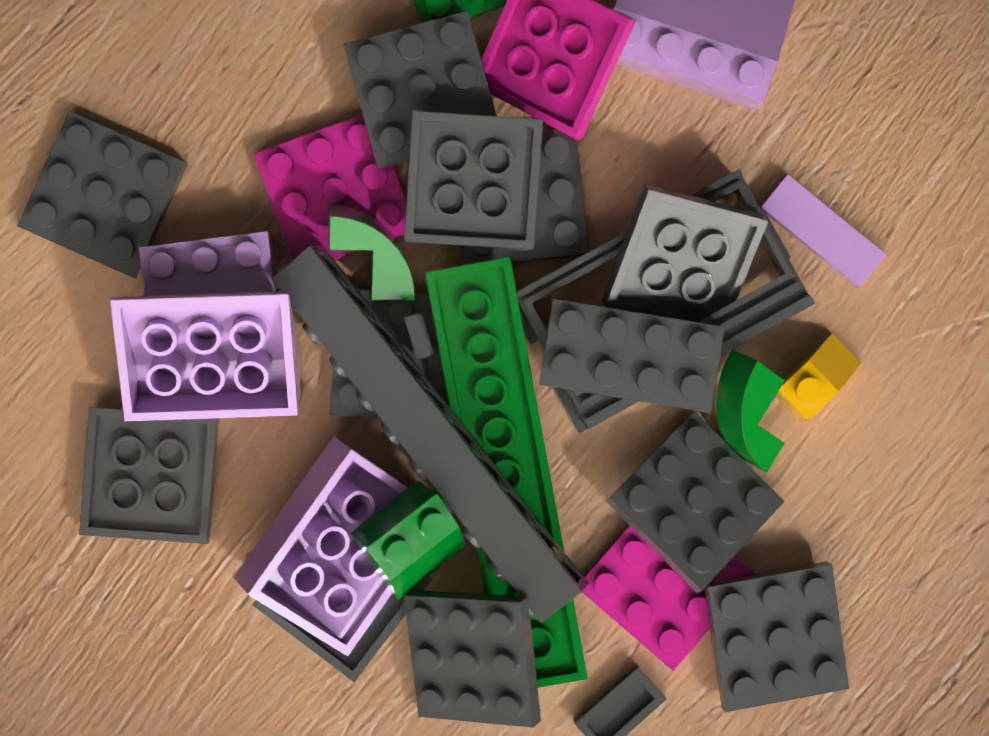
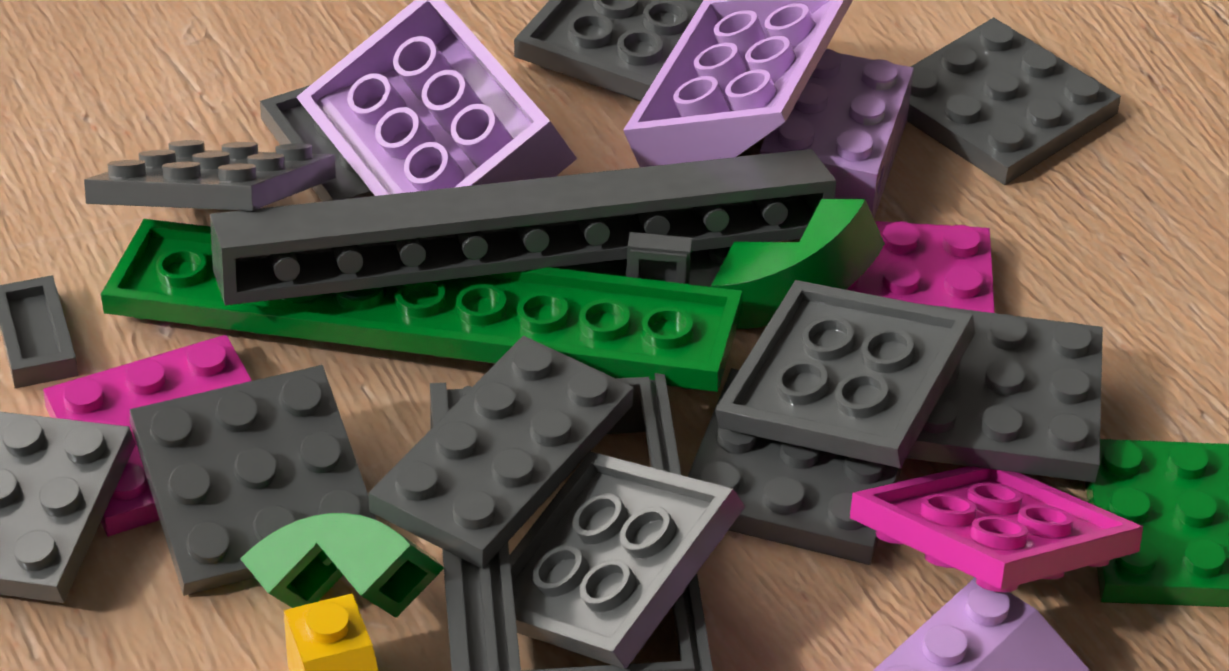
camera: 115 degrees right, 45 degrees down
(409, 538) = (397, 143): green slope -> none

